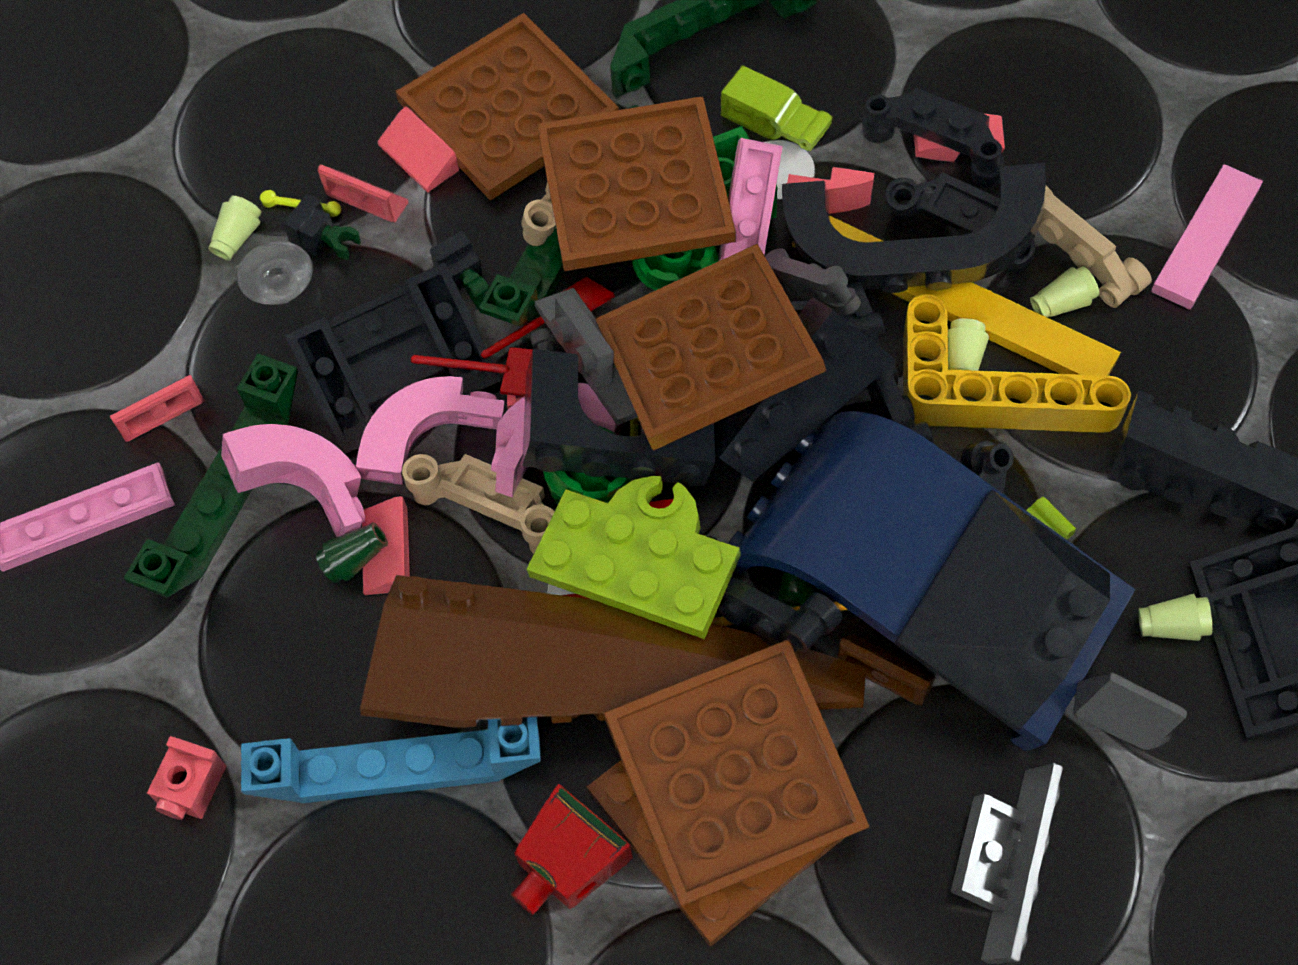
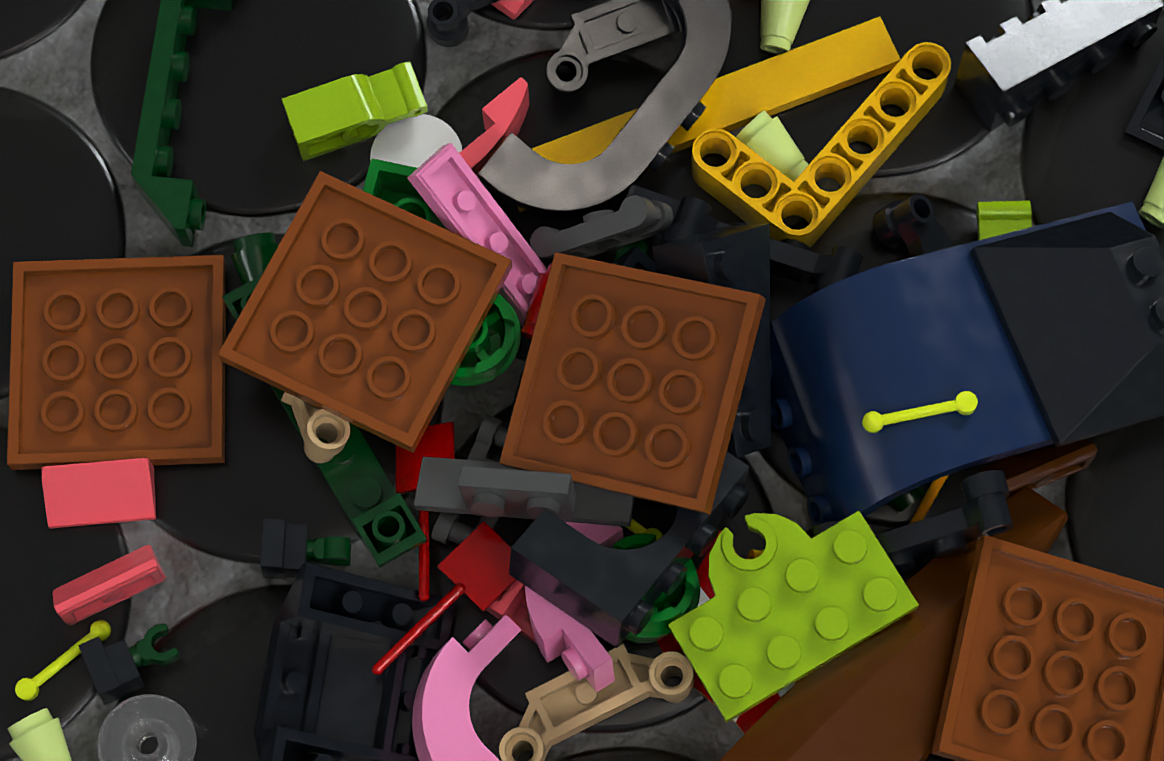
camera: 55 degrees left, 10 degrees up
(866, 551) = (964, 404): none -> neon yellow hinge

